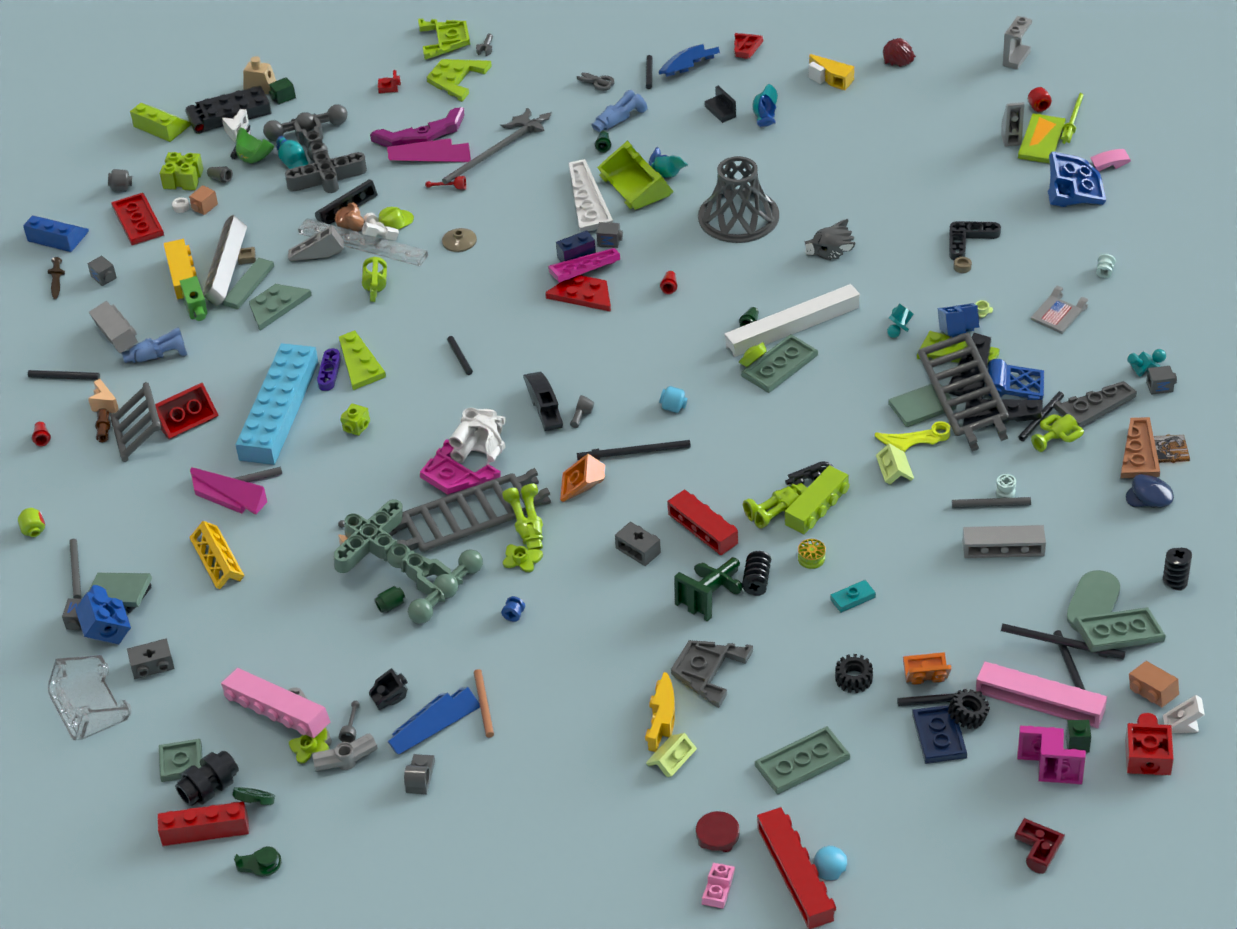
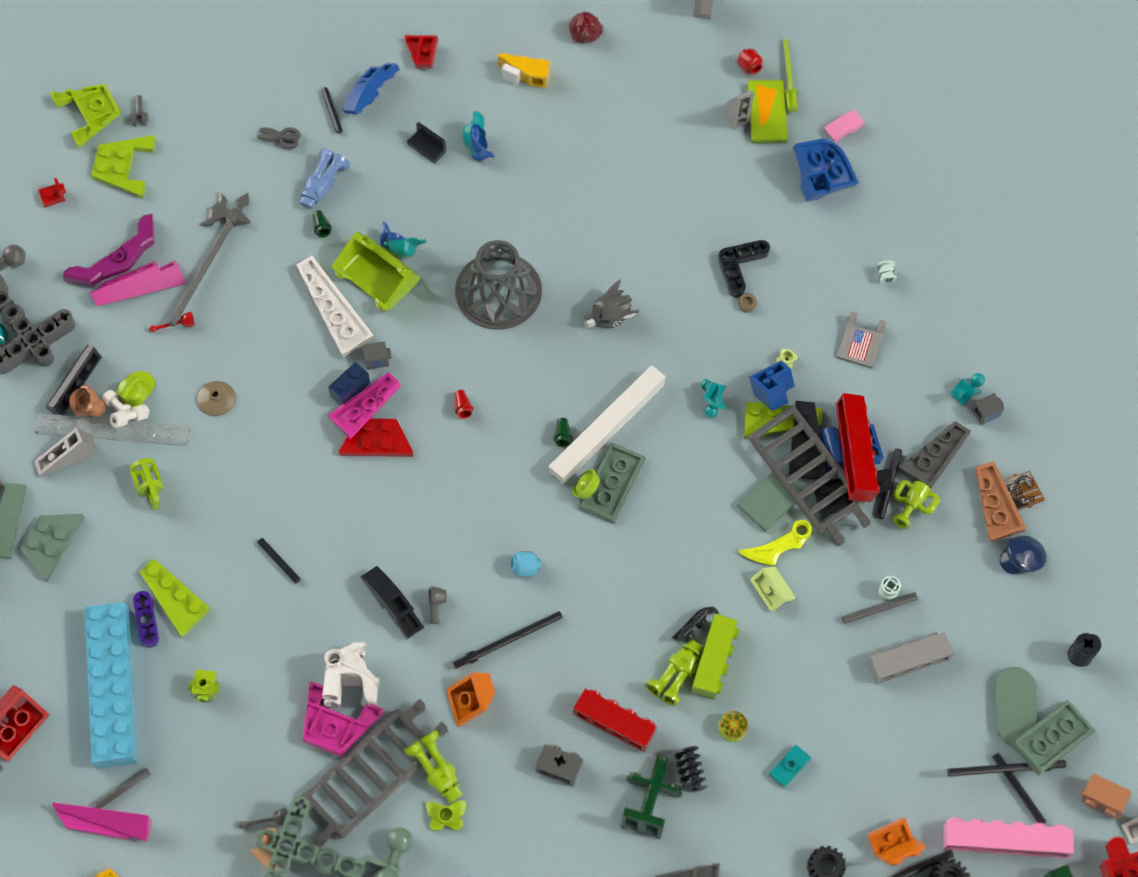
camera: 25 degrees left, 20 degrees up
(1017, 375) = (857, 448): none -> red brick

